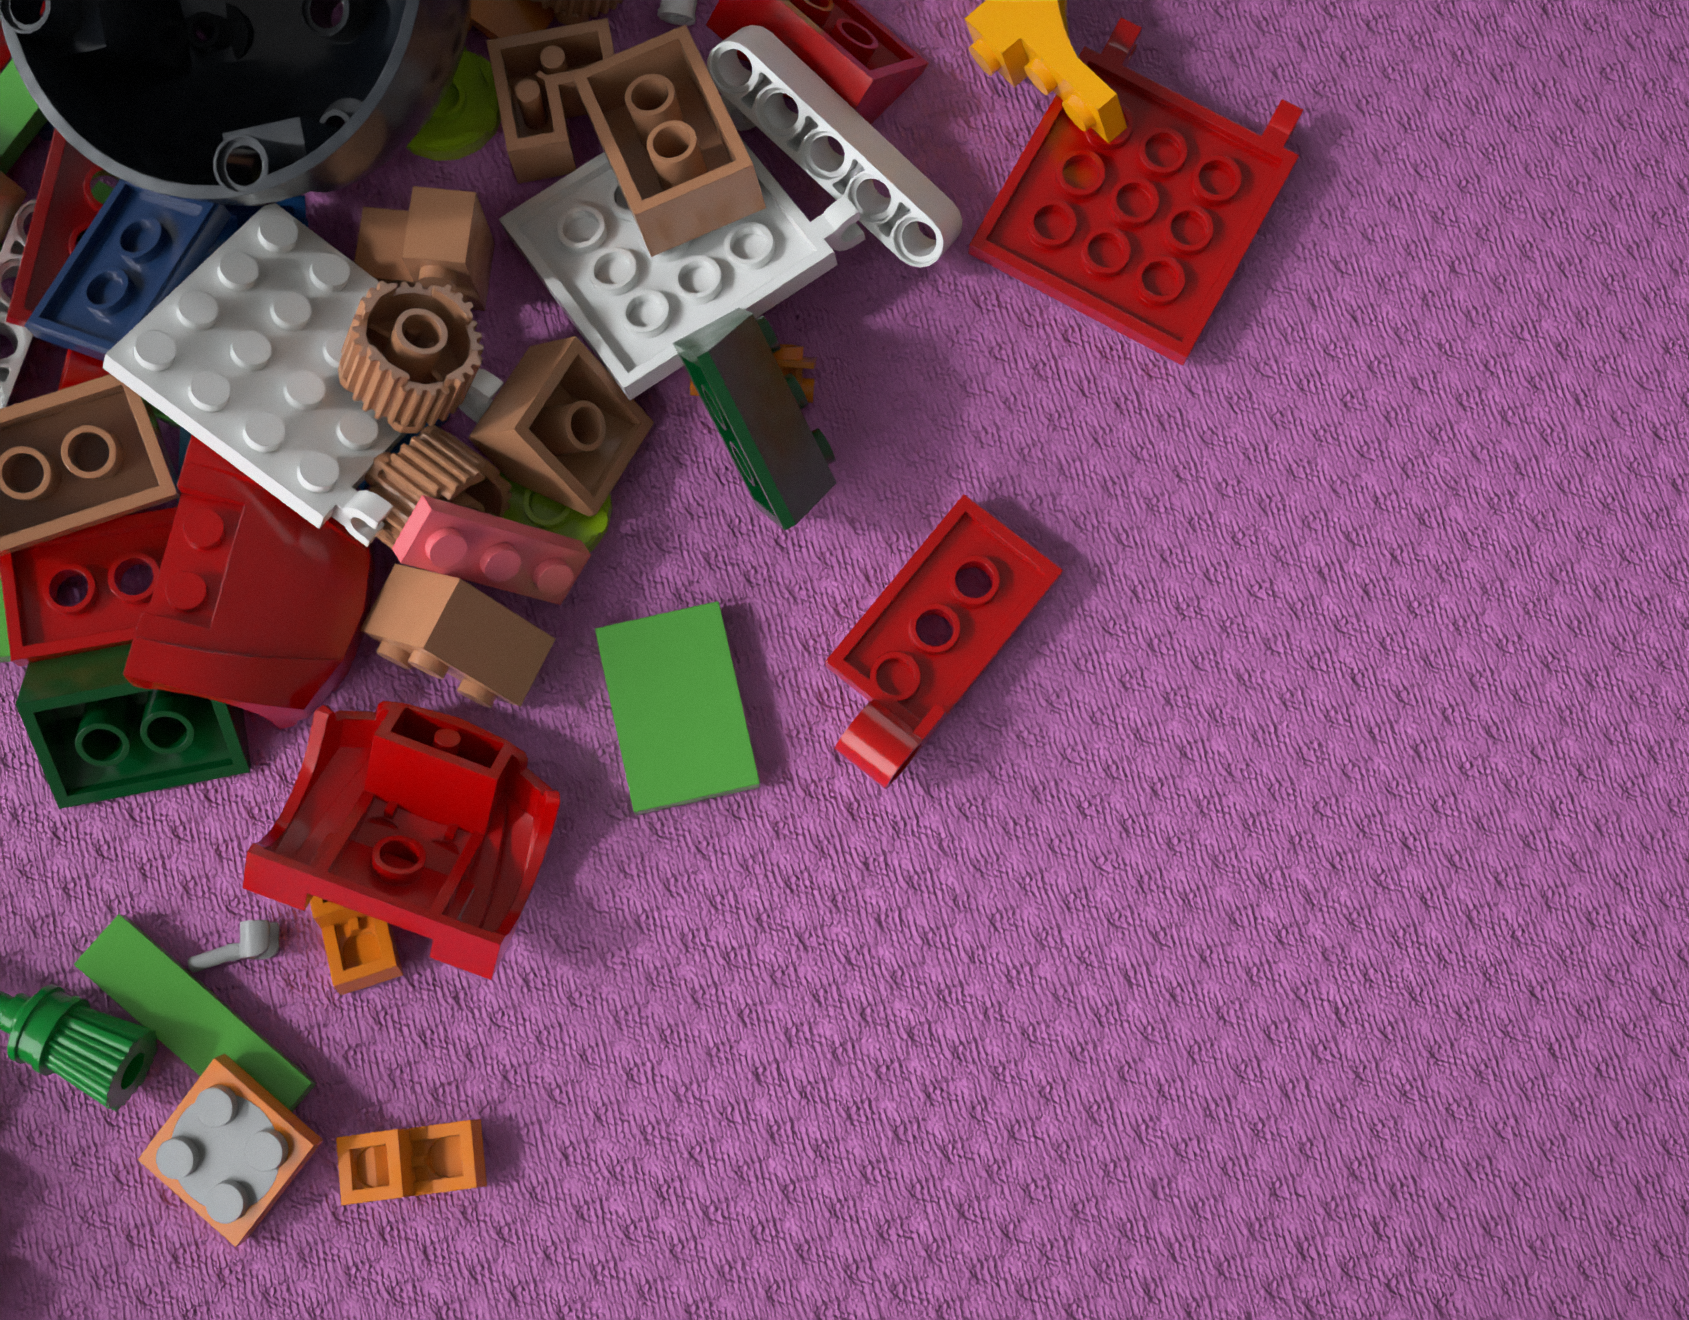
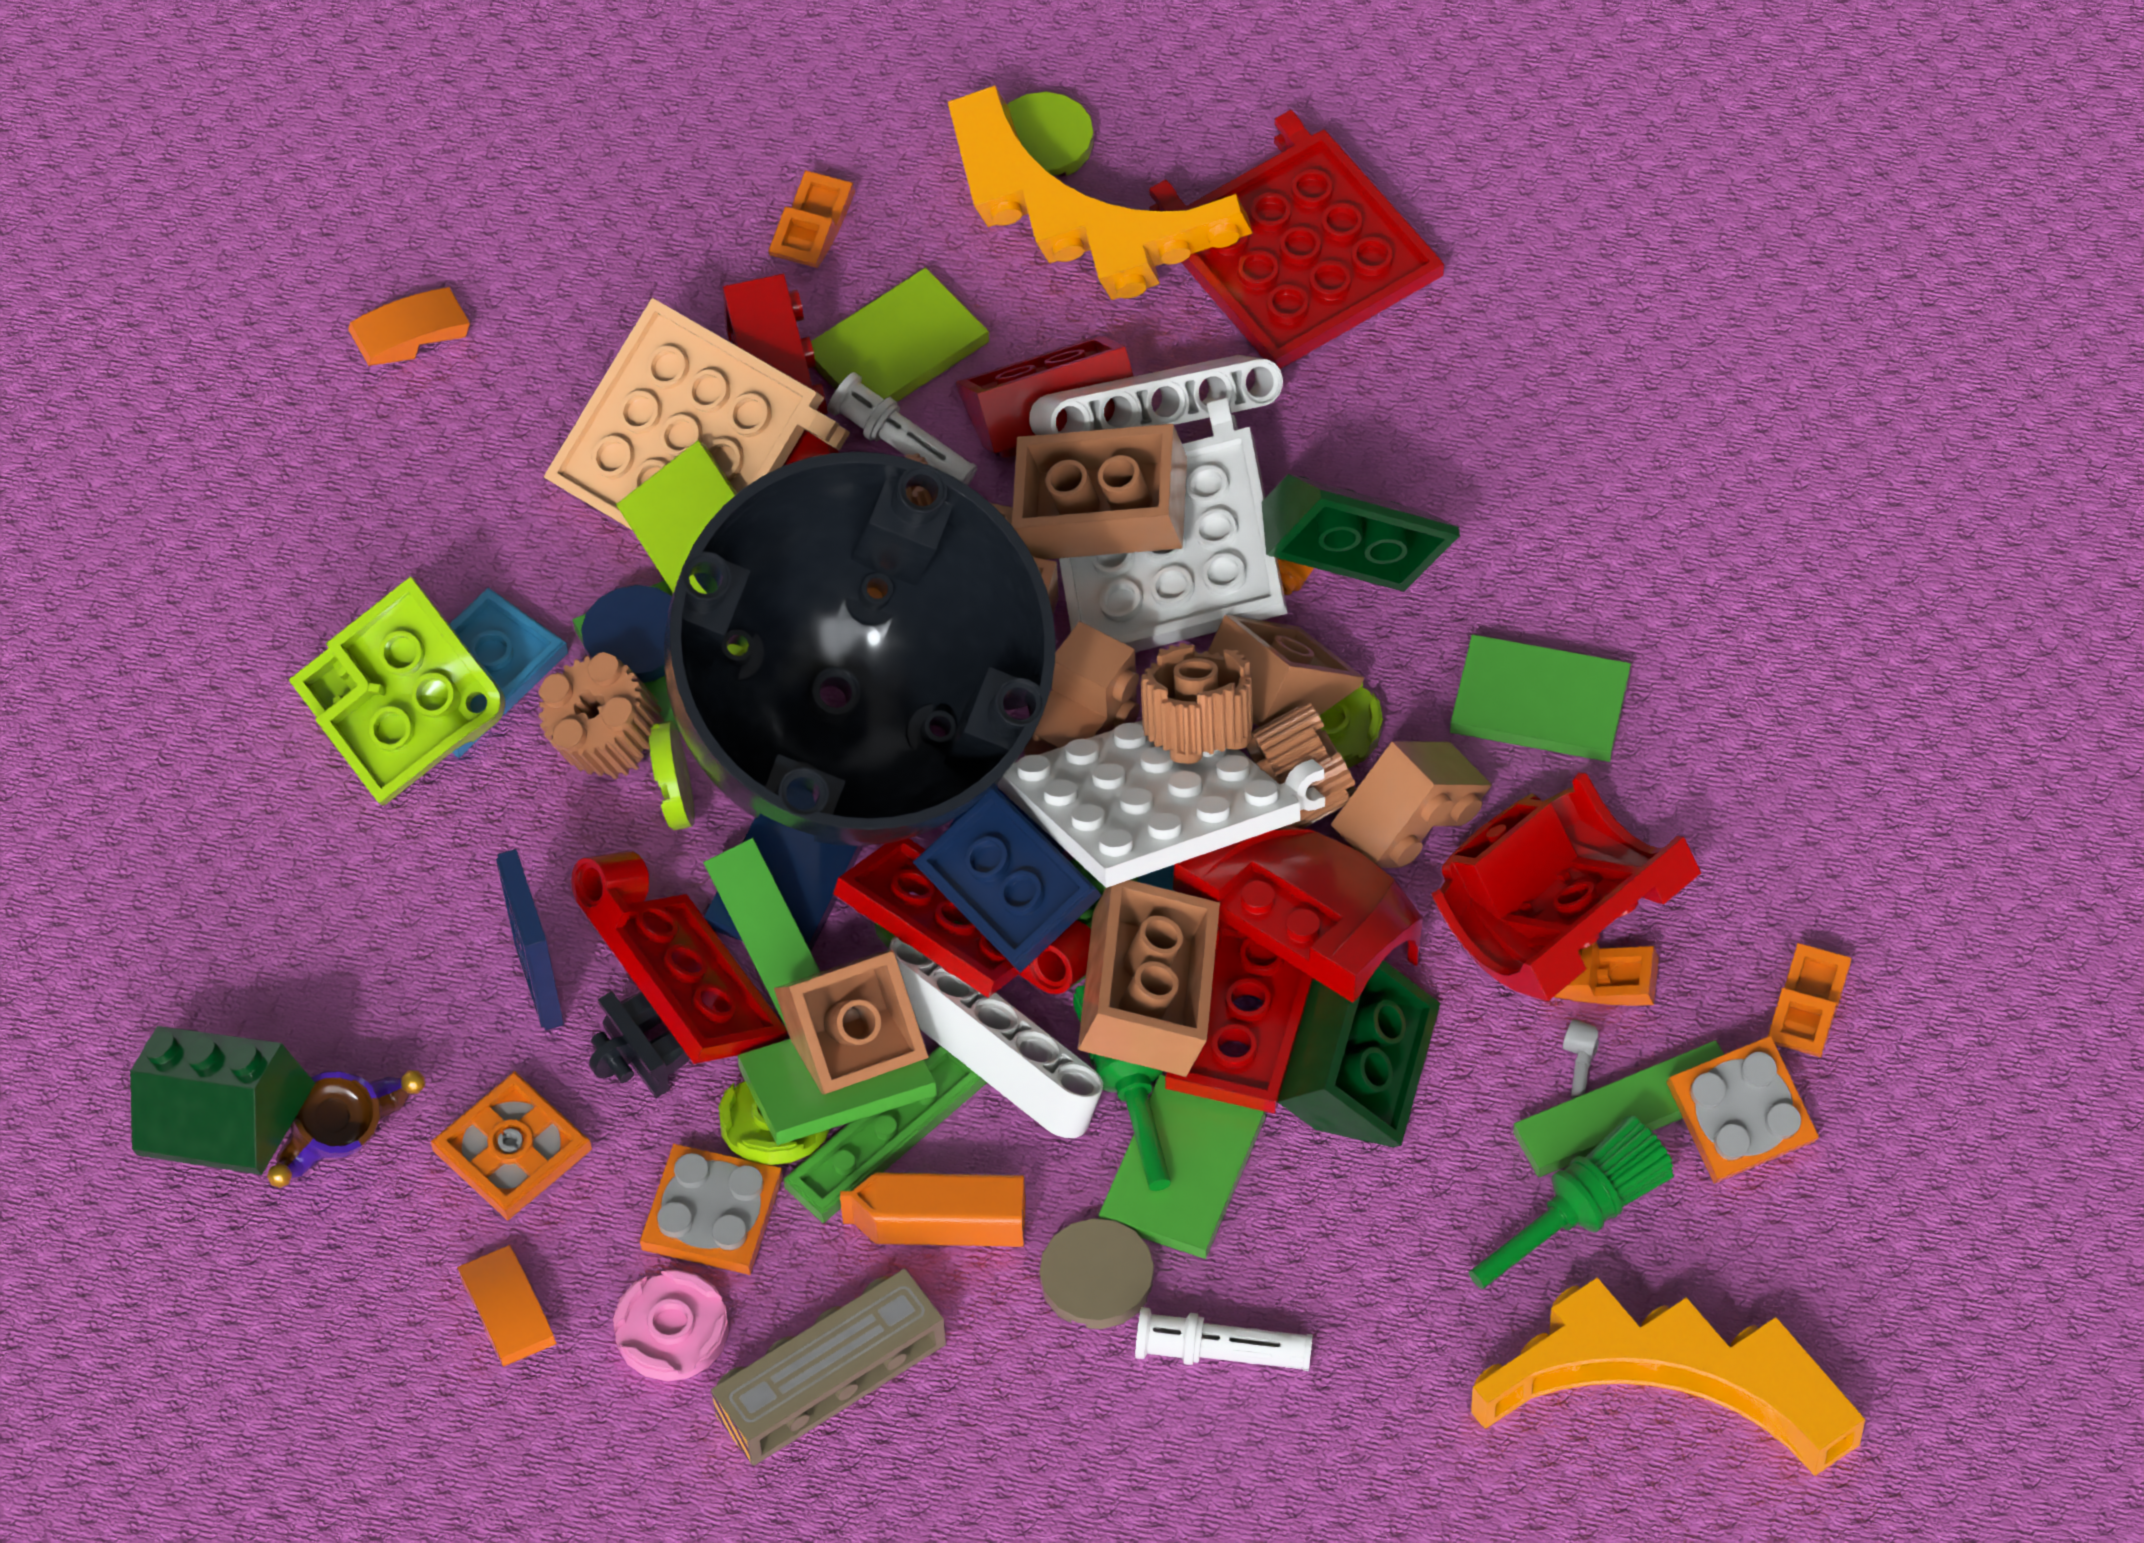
camera: 60 degrees left, 20 degrees down
(490, 550) = (1367, 732): coral plate -> none
(920, 684) = (1579, 546): red hinge -> none

